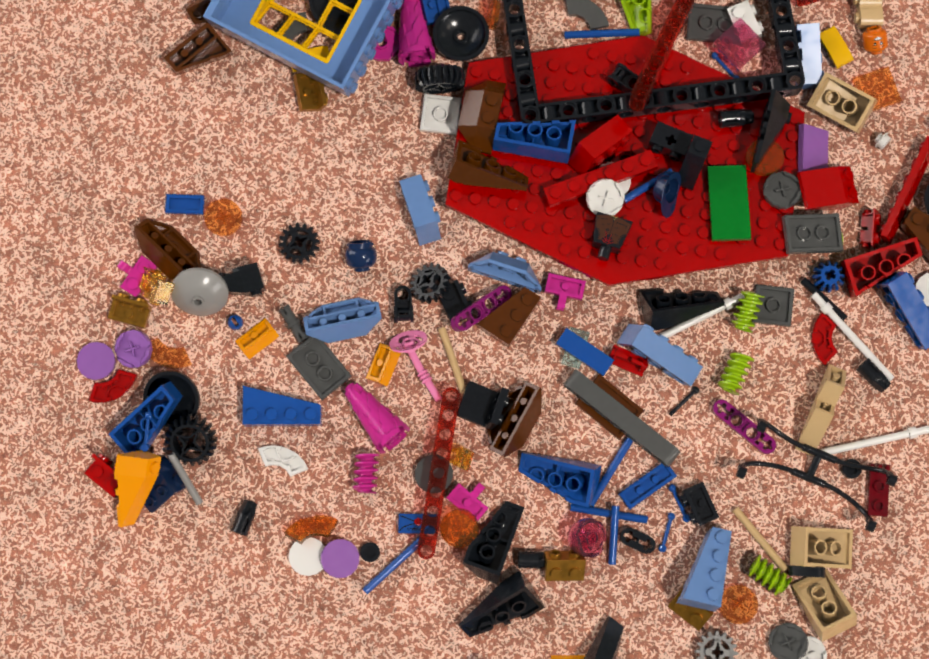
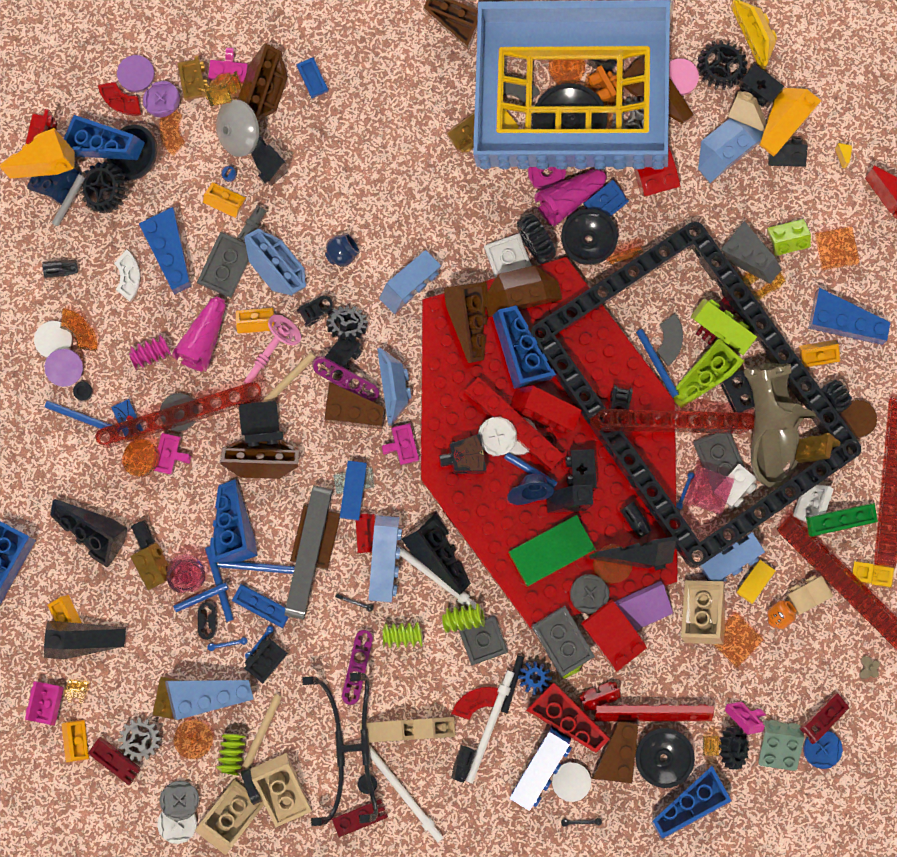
camera: 60 degrees right, 0 degrees up
(145, 447) = (76, 150): blue hinge -> none
(223, 217) = (317, 116): clear orange tile -> none
(293, 247) = (332, 197): black gear -> none
(463, 458) = (204, 430): clear yellow tile -> none
(490, 548) = (137, 494): black wedge -> none
(882, 140) = (689, 667): white plate -> none

